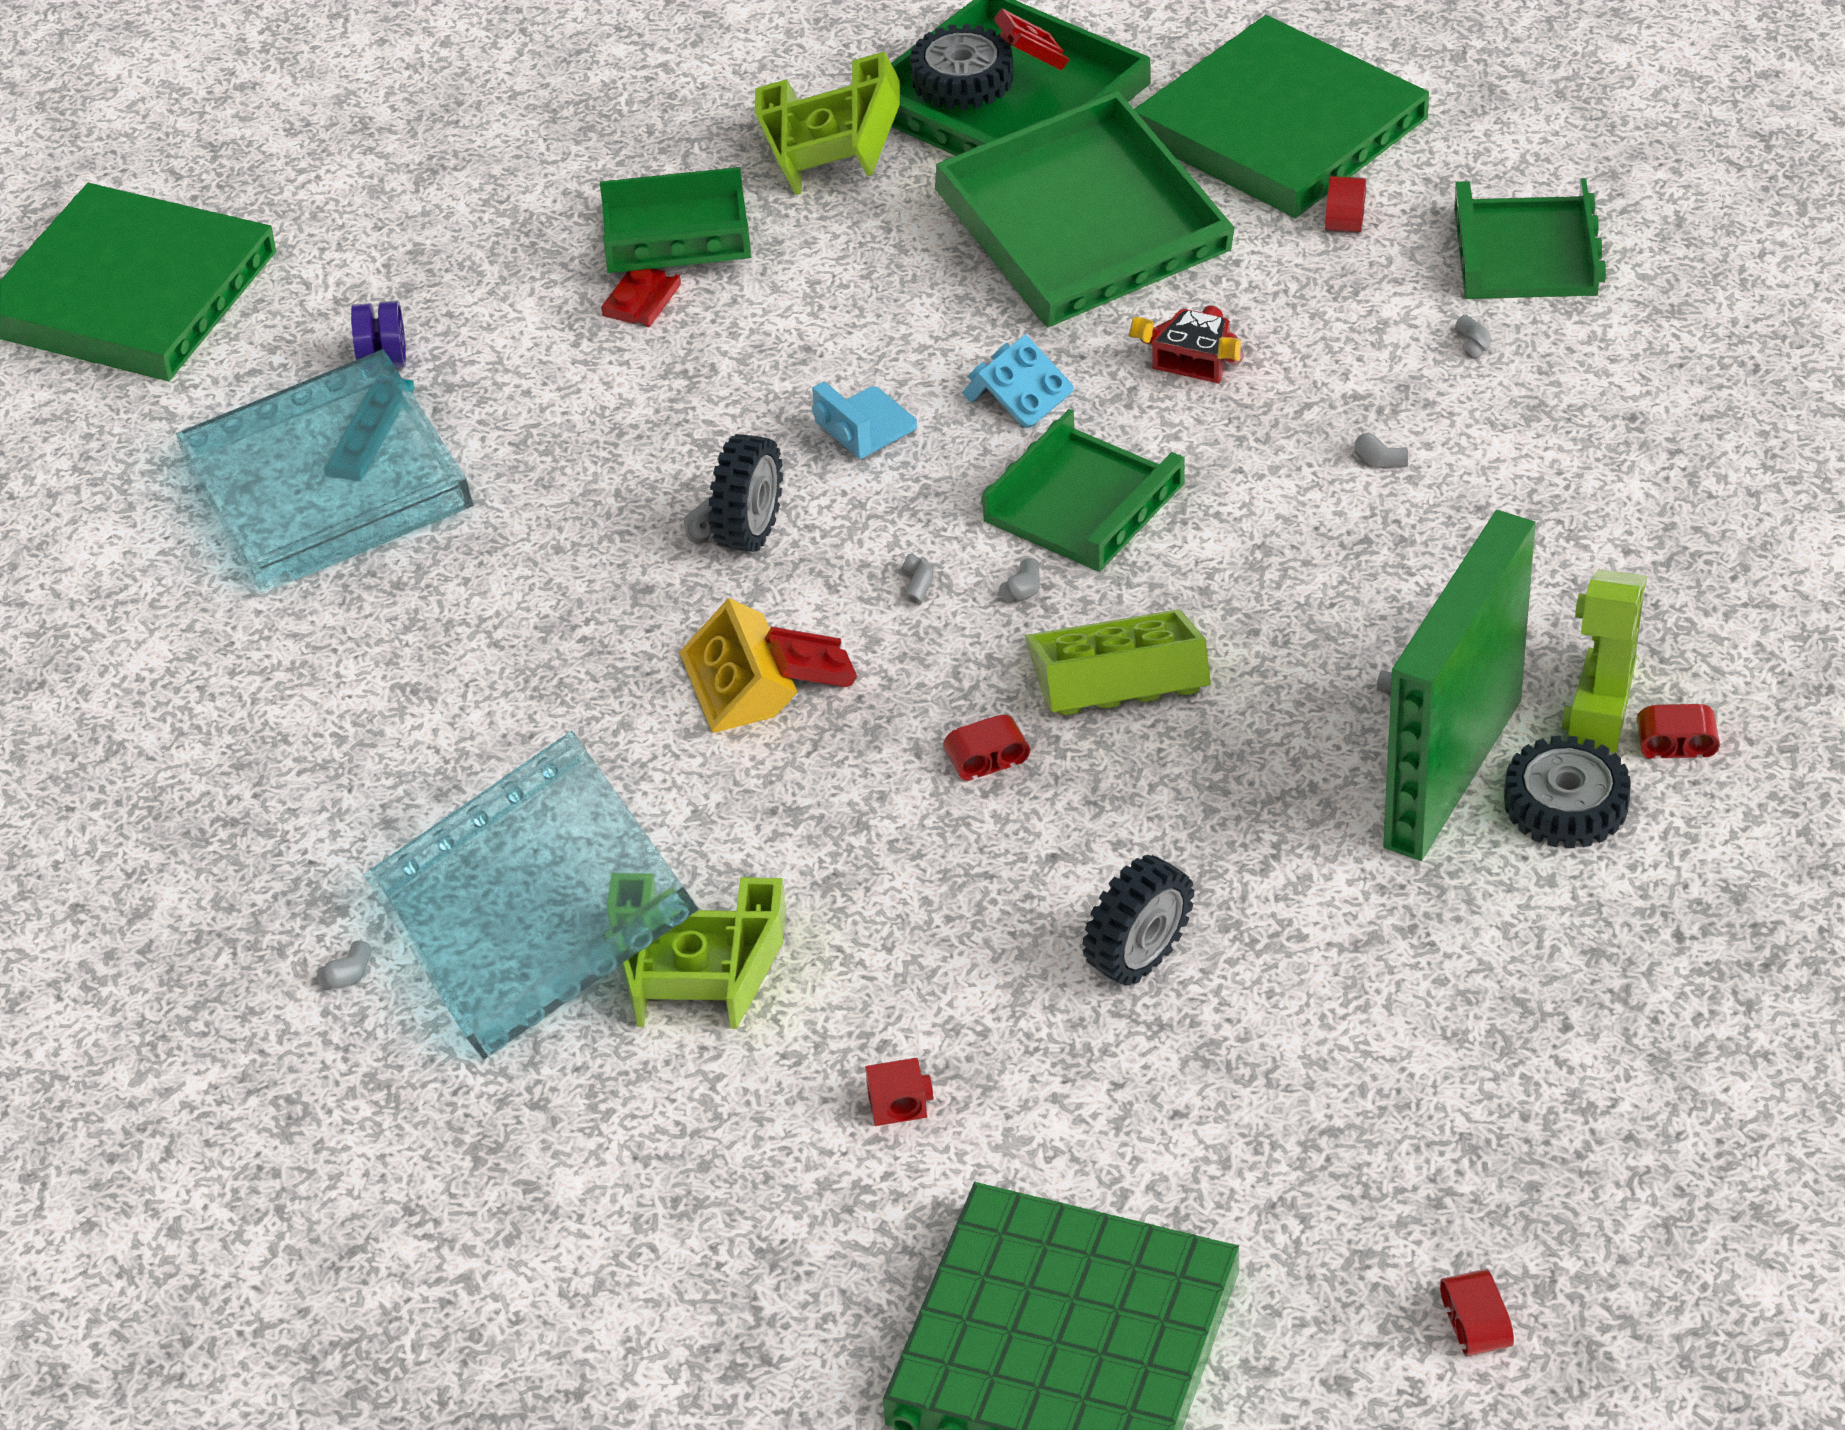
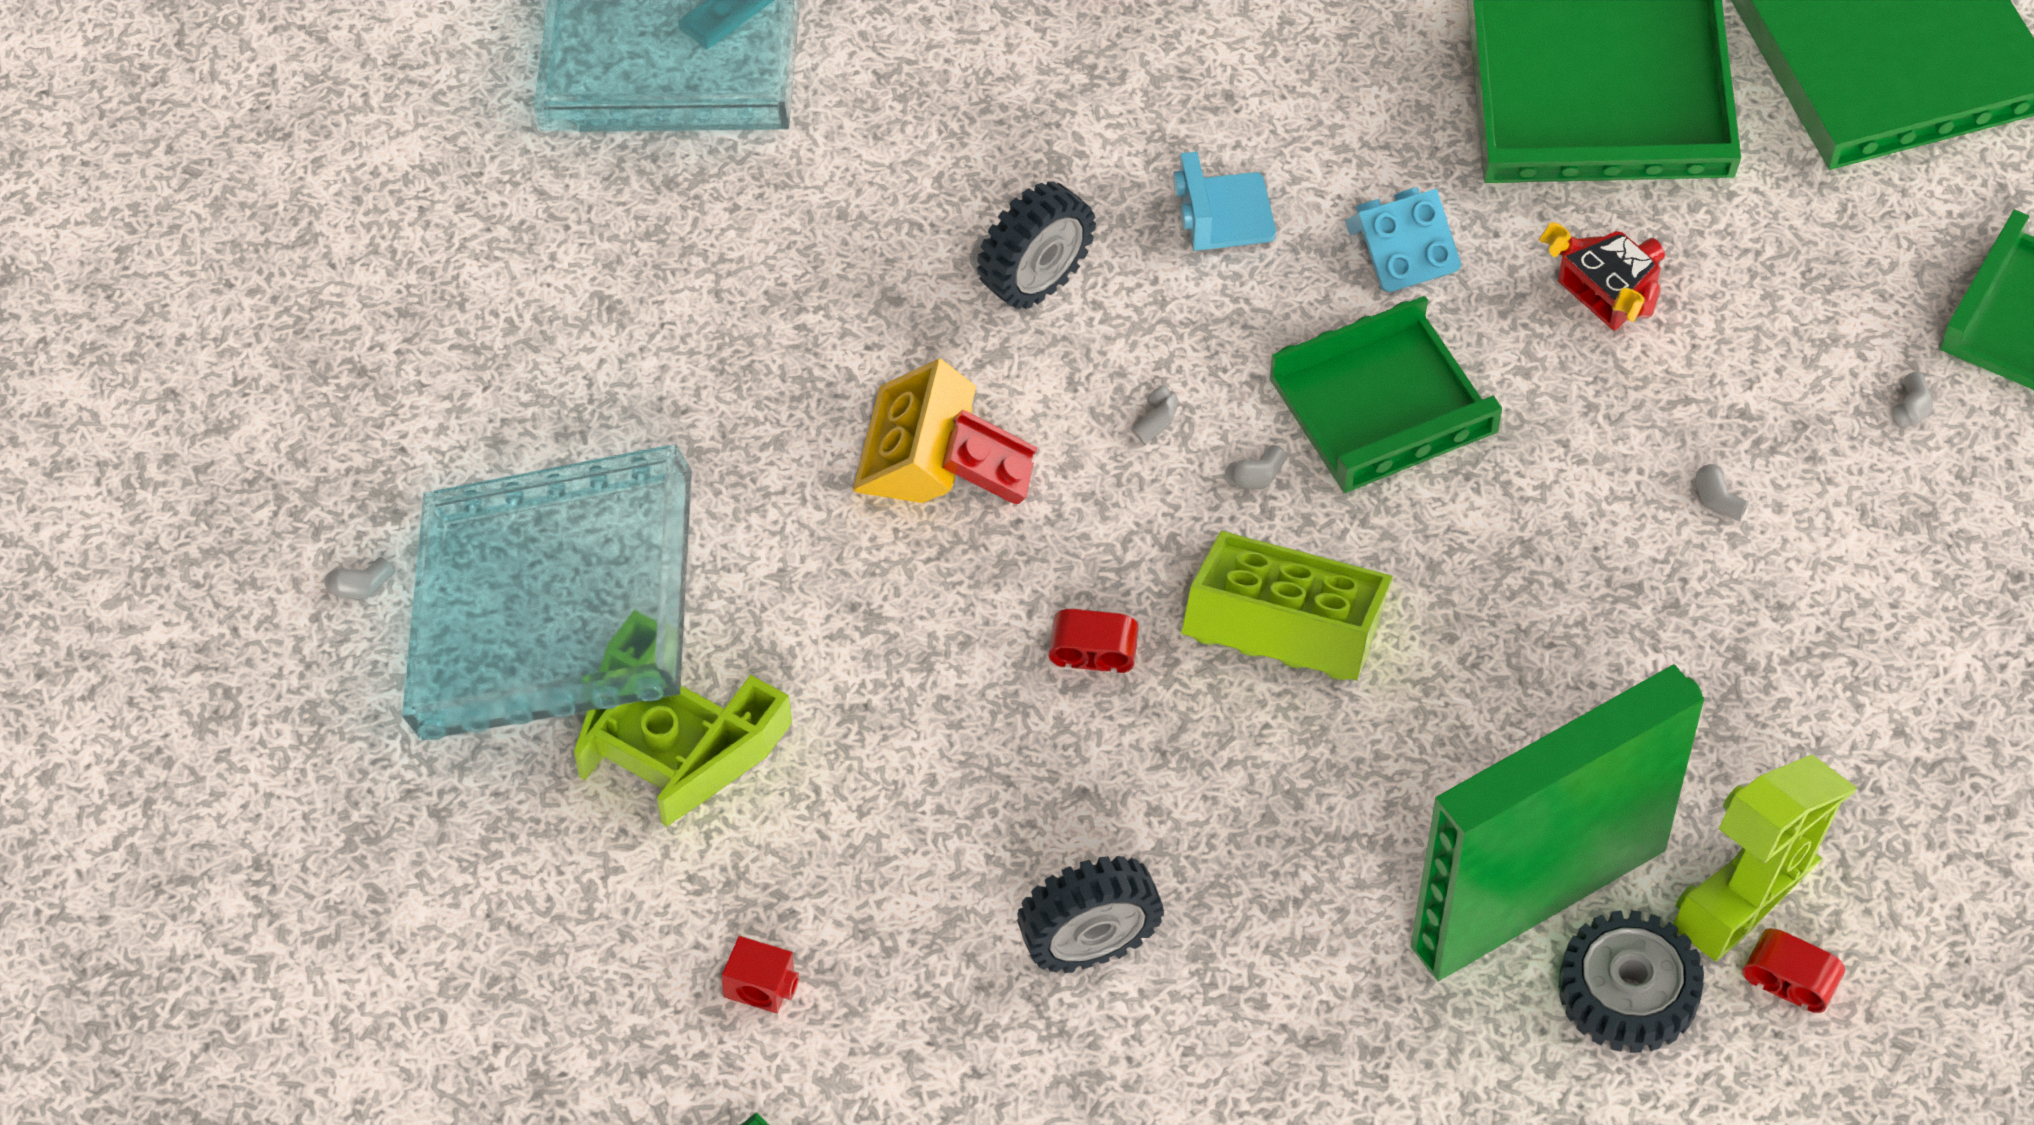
camera: 25 degrees right, 10 degrees up
(1345, 204) = (1886, 179): red beam -> none

